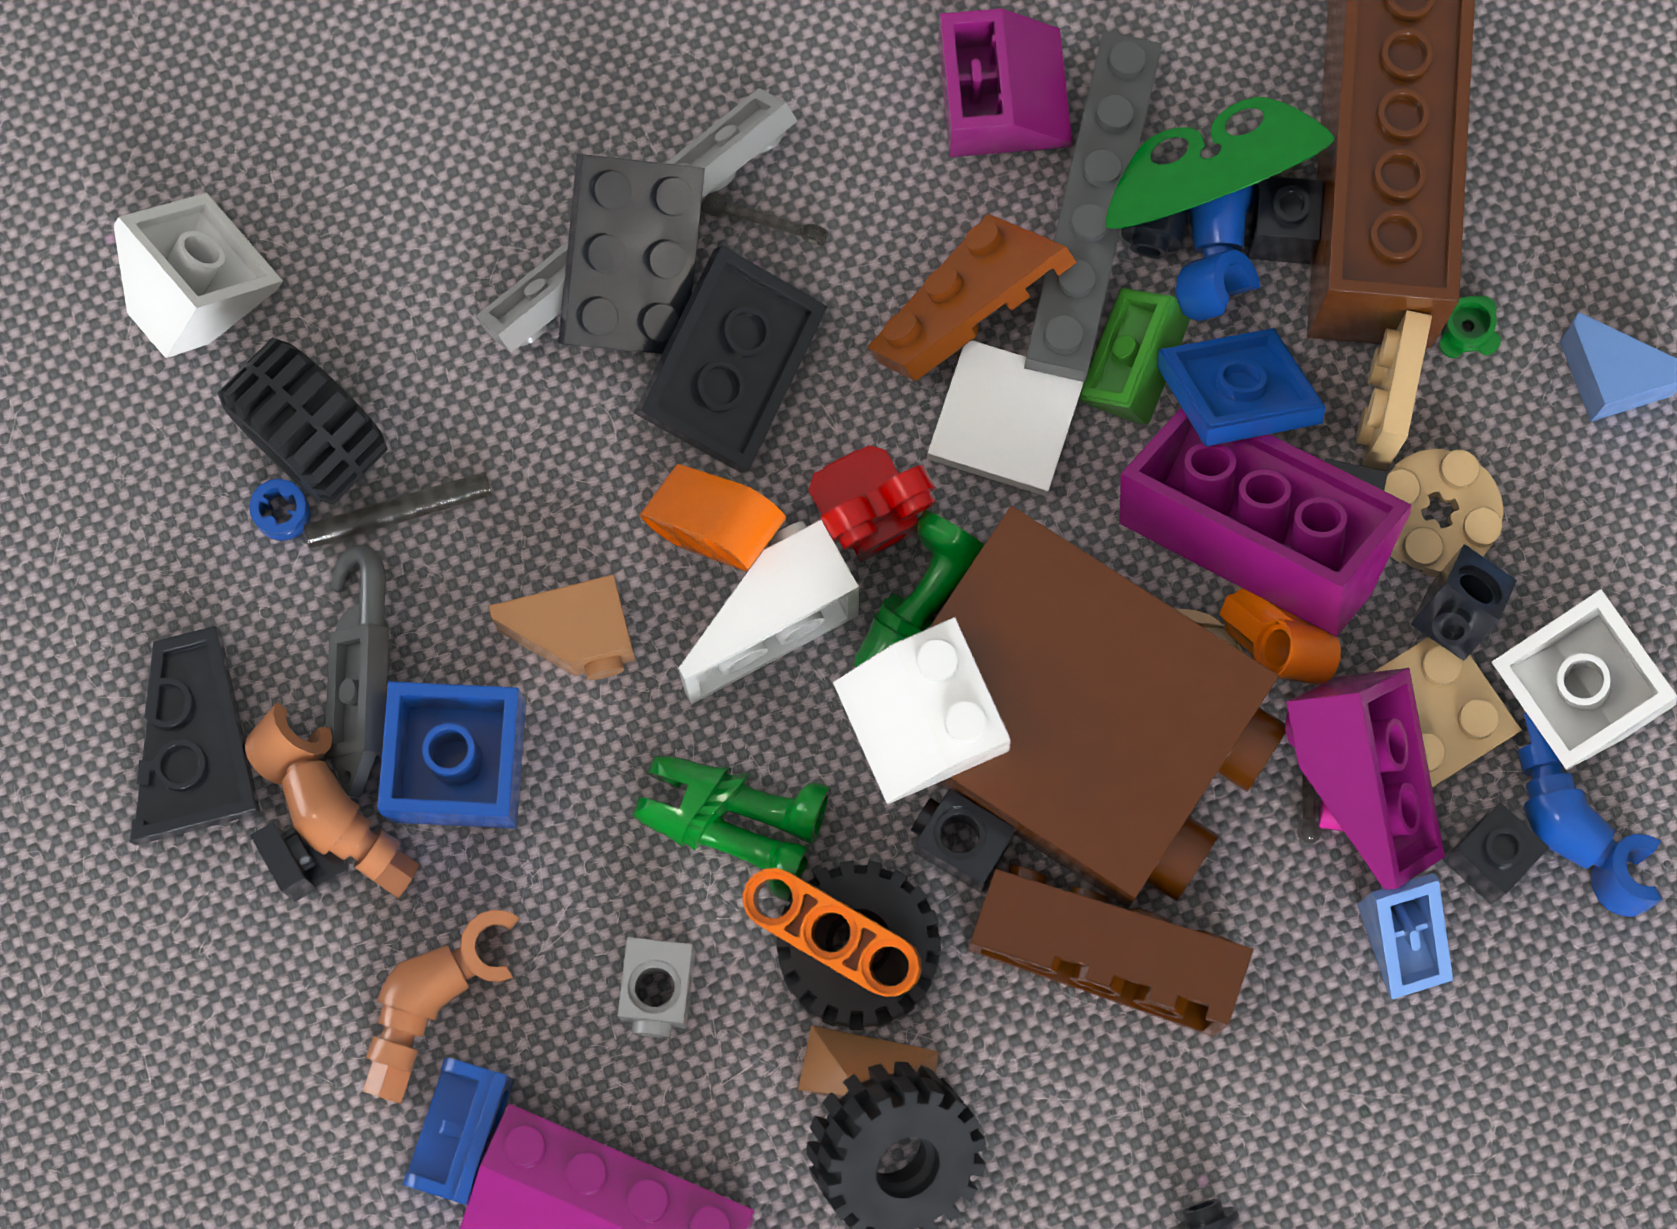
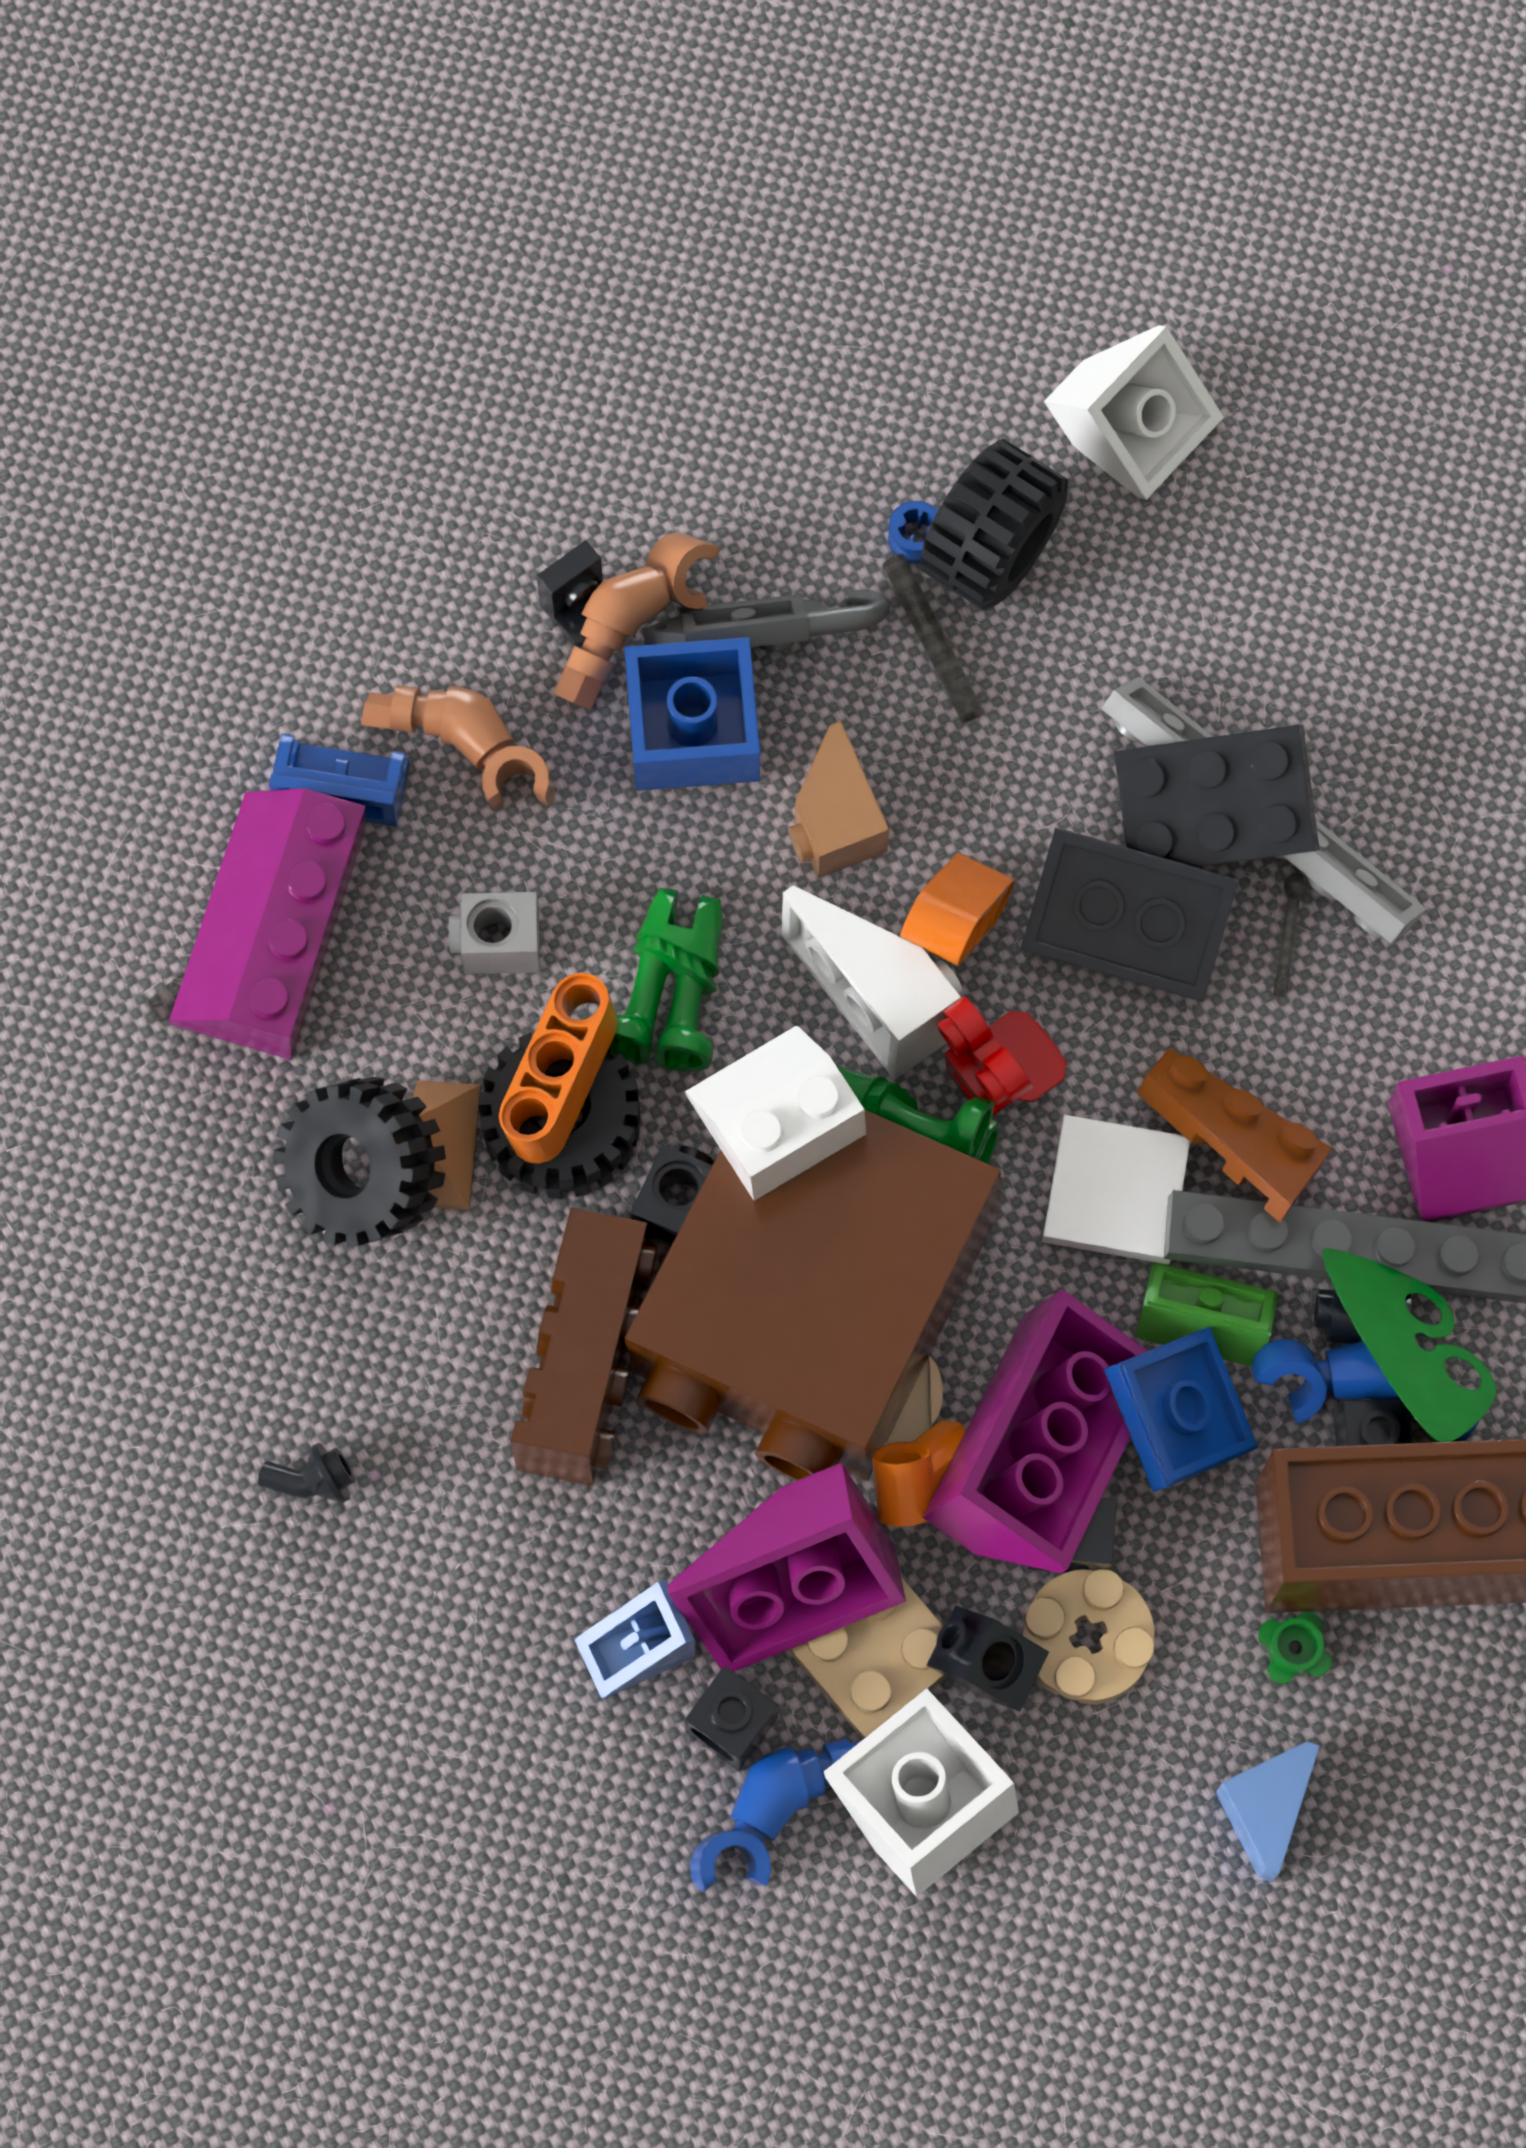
camera: 80 degrees right, 5 degrees down
(193, 744) = (679, 489): black wing -> none
(1397, 374) = (1181, 1561): tan plate -> none

